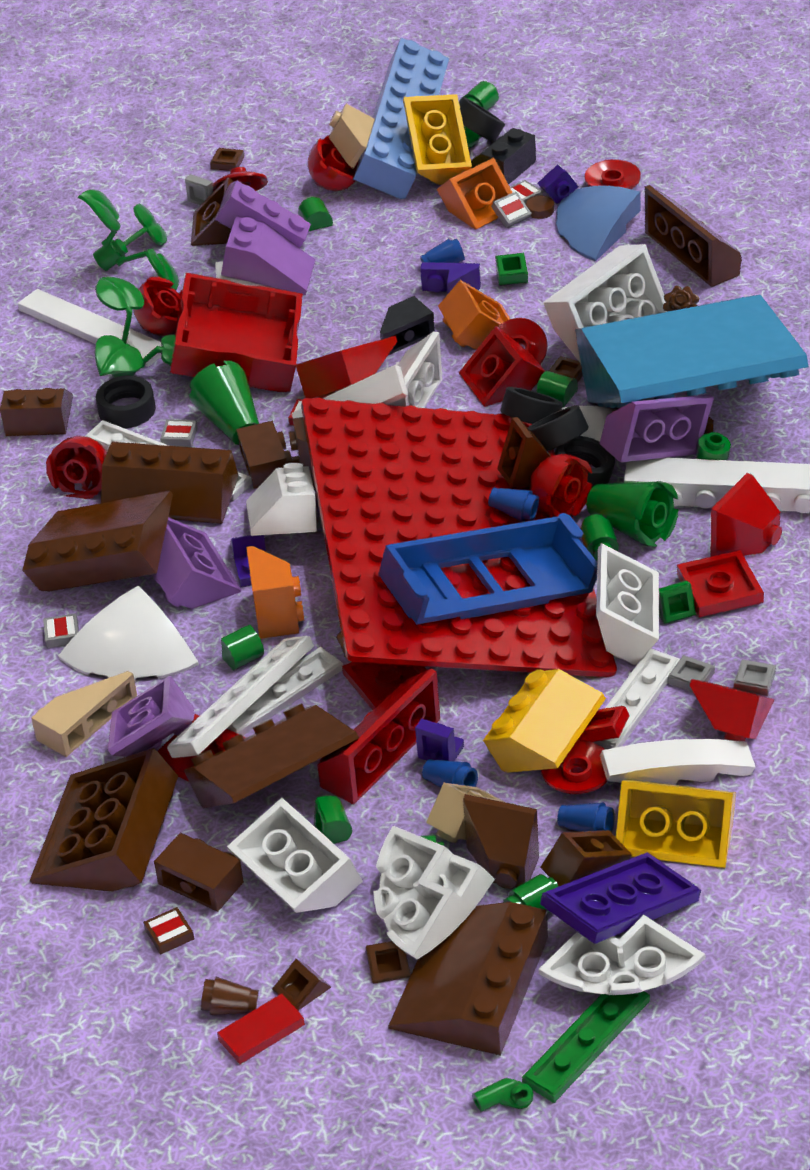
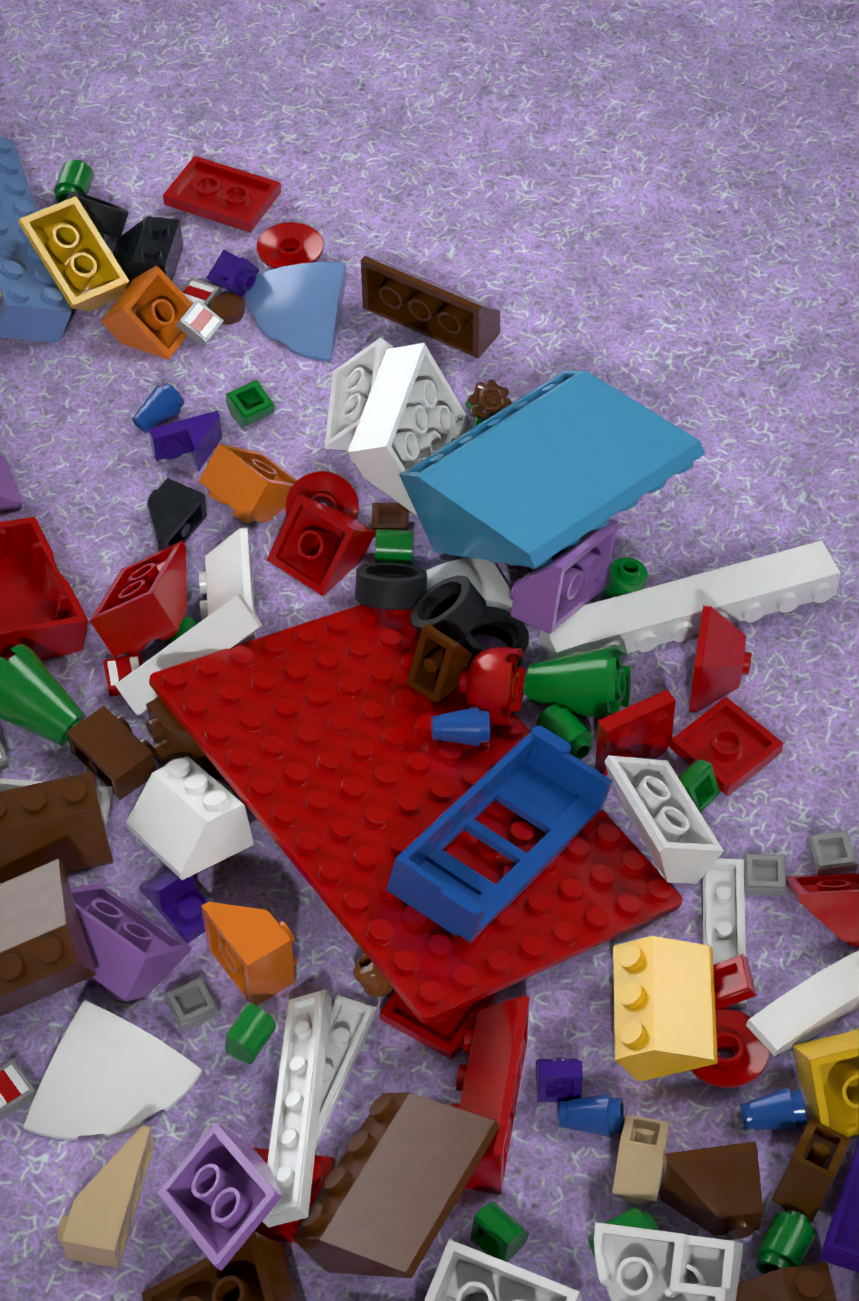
camera: 30 degrees left, 10 degrees up
(217, 621) = (191, 1004): none -> light grey tile
(586, 131) = (222, 193): none -> red plate
(650, 542) = (637, 730): none -> red plate

